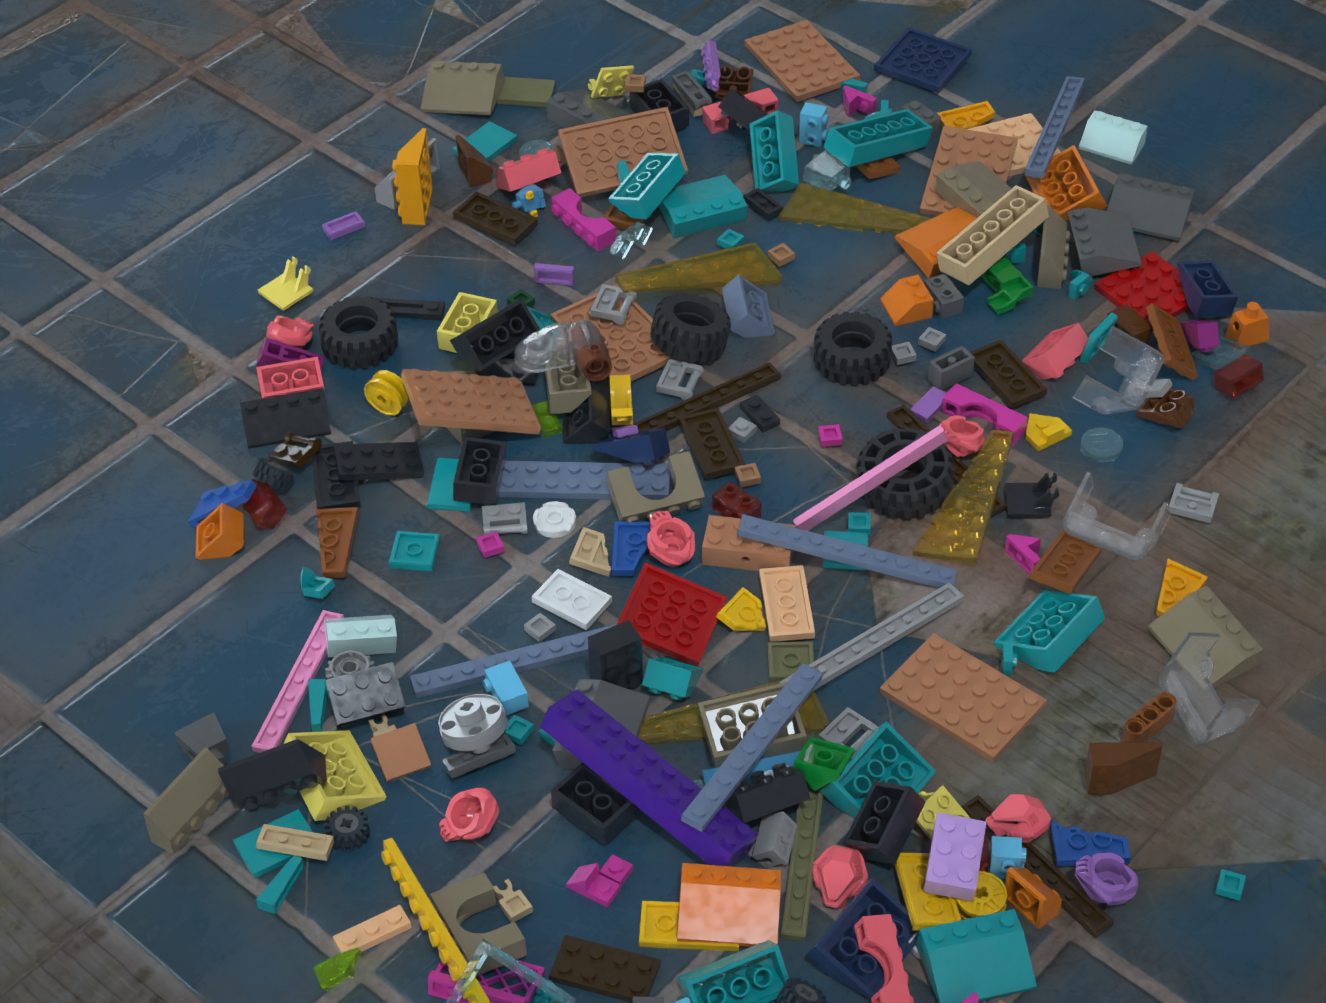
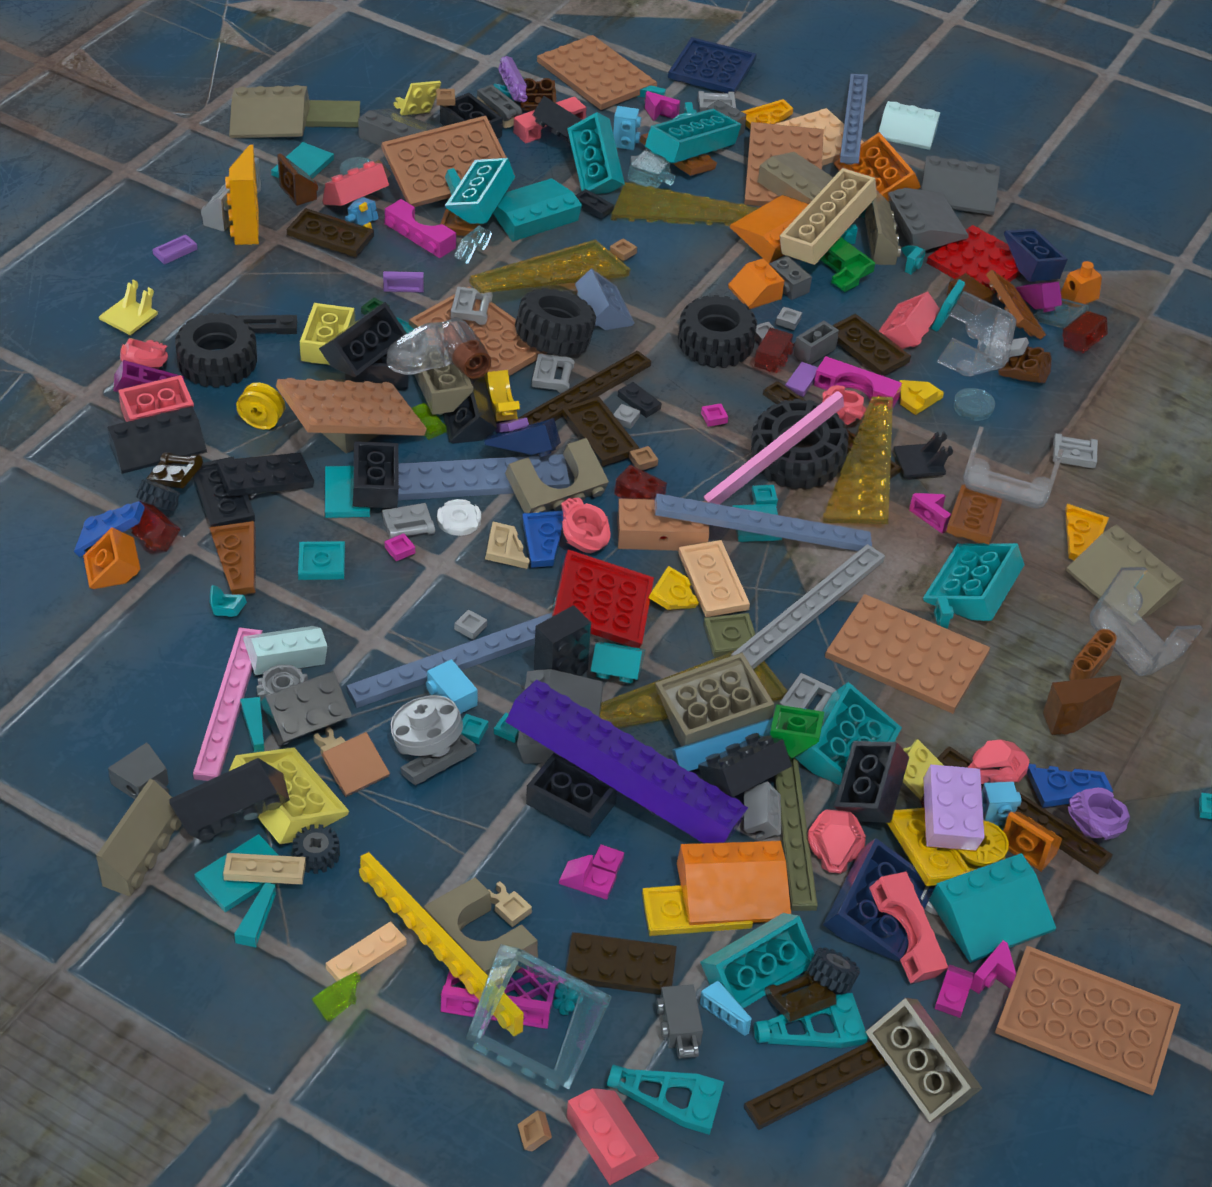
camera: 15 degrees left, 0 degrees up
(469, 815) = (445, 820): coral helmet -> none
(572, 599) = (496, 593): white plate -> none
(730, 239) = (570, 238): teal plate -> none
(751, 748) = (724, 722): sand blue plate -> none
(906, 372) = (774, 350): none -> clear red brick
(926, 98) = (707, 99): none -> light grey plate

